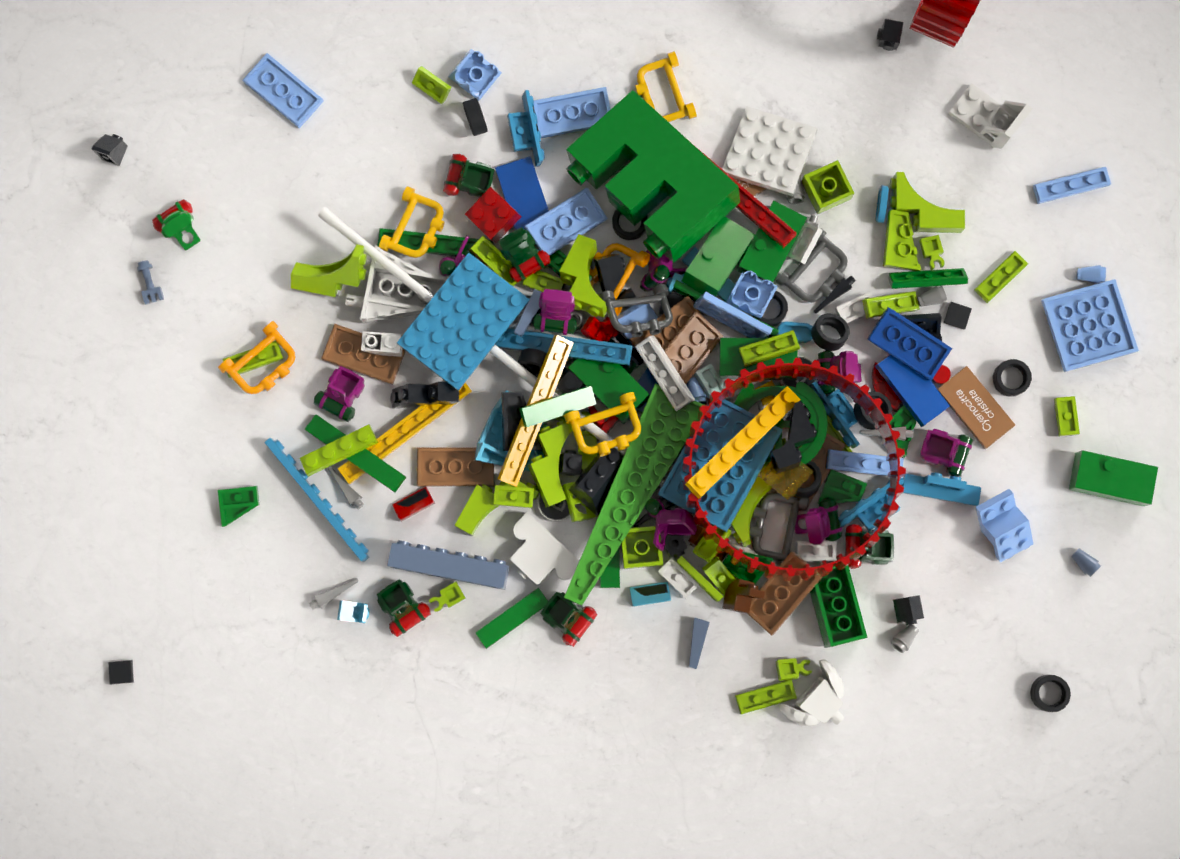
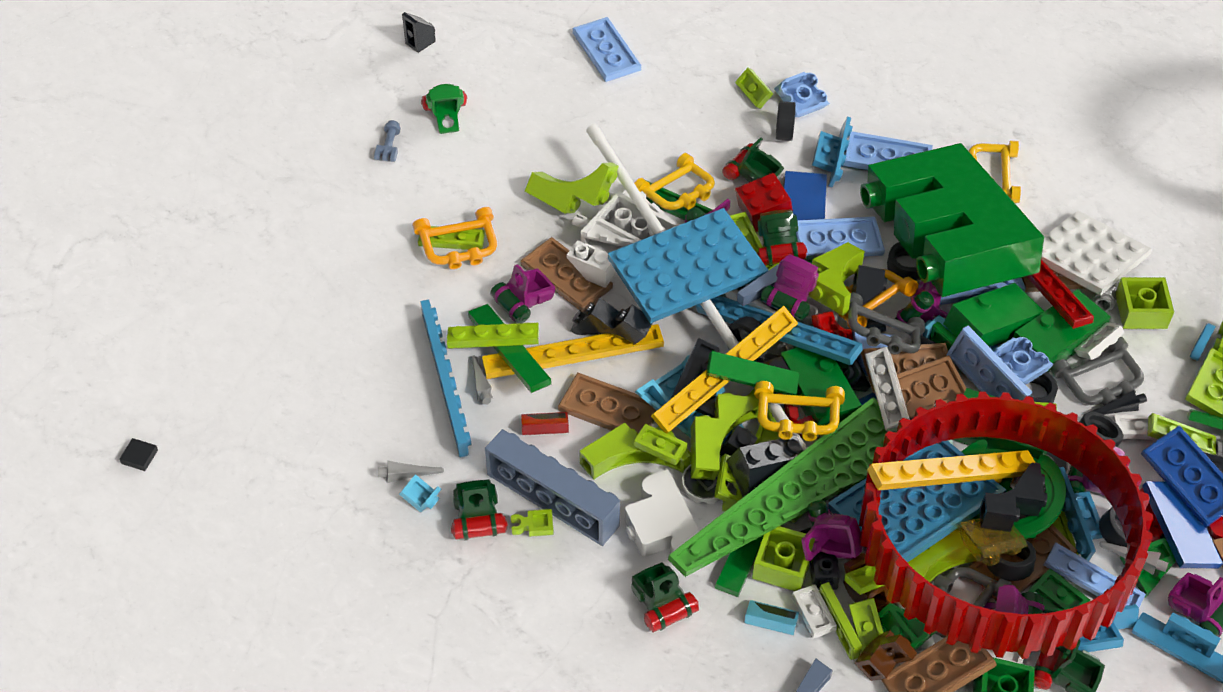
camera: 25 degrees right, 30 degrees down
(236, 502) = (358, 348): green wing -> none
(512, 618) = (594, 575): green tile -> none

